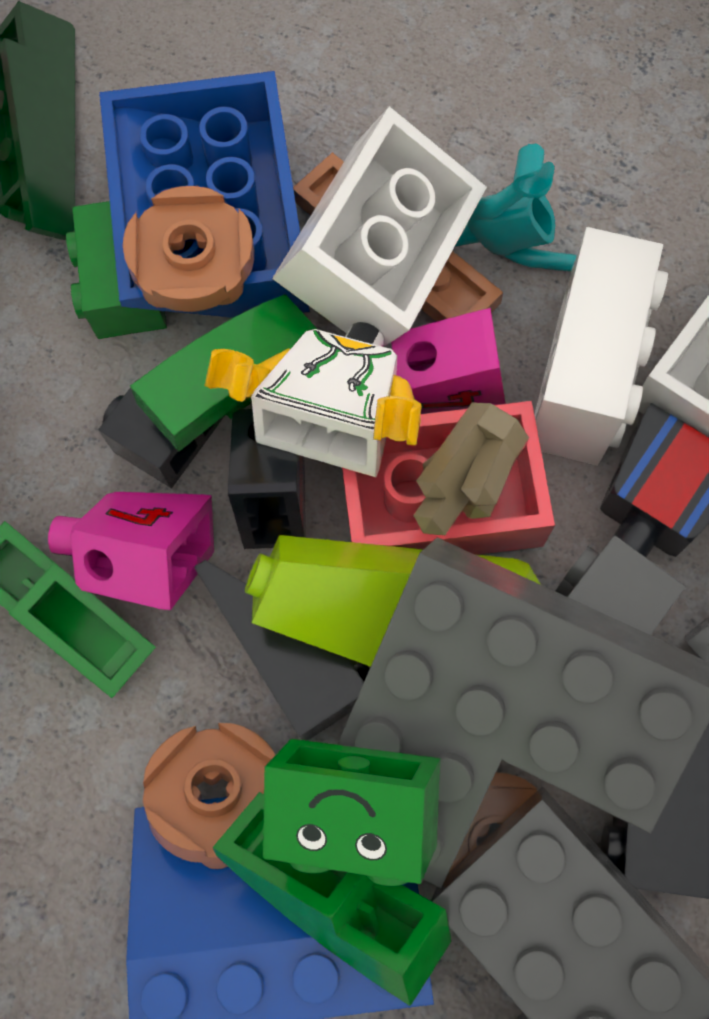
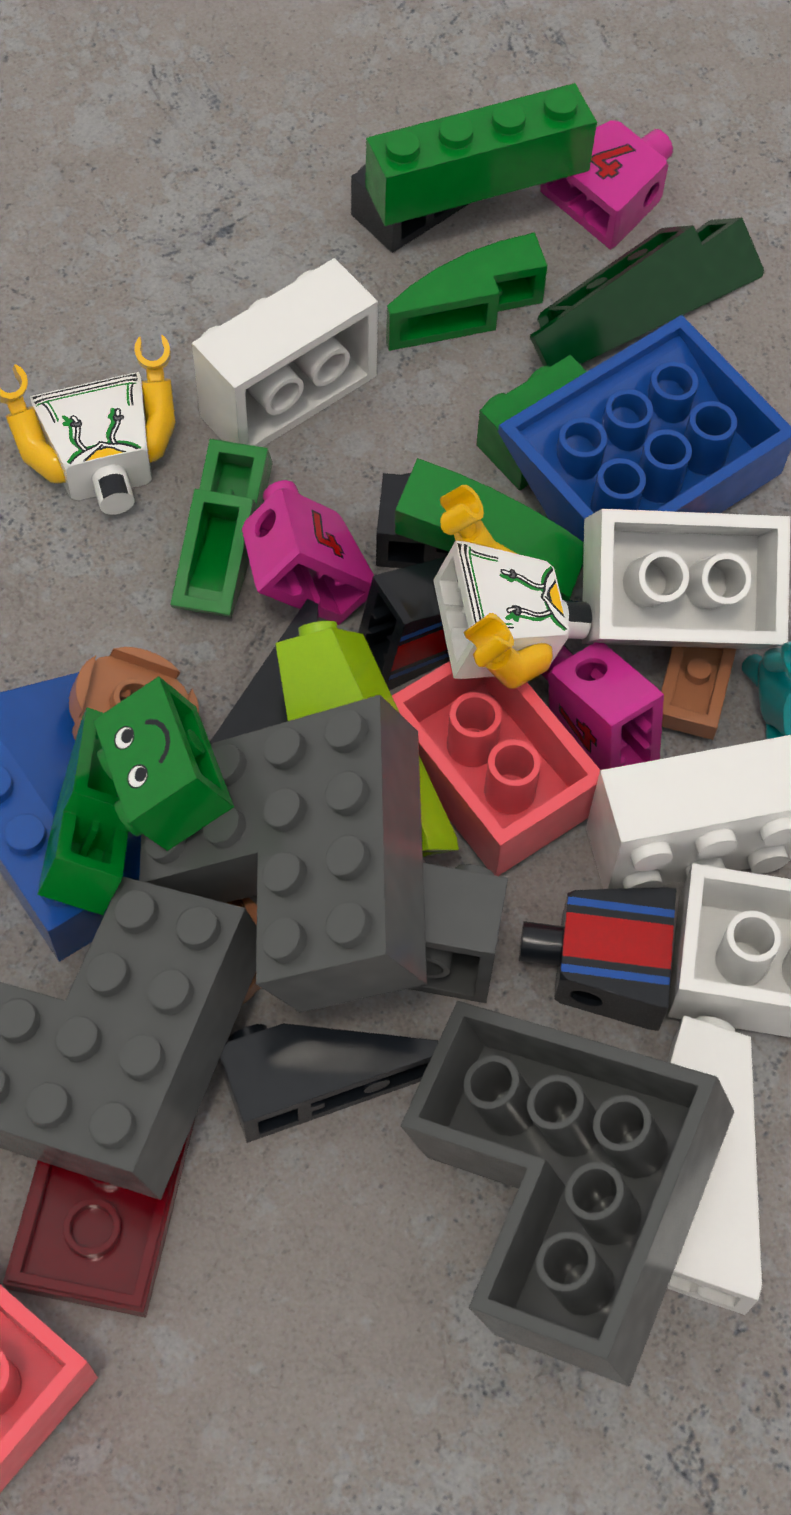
camera: 55 degrees right, 10 degrees down
(193, 282) = (567, 477): nougat plate -> none
(469, 468) = (499, 740): dark tan rock -> none

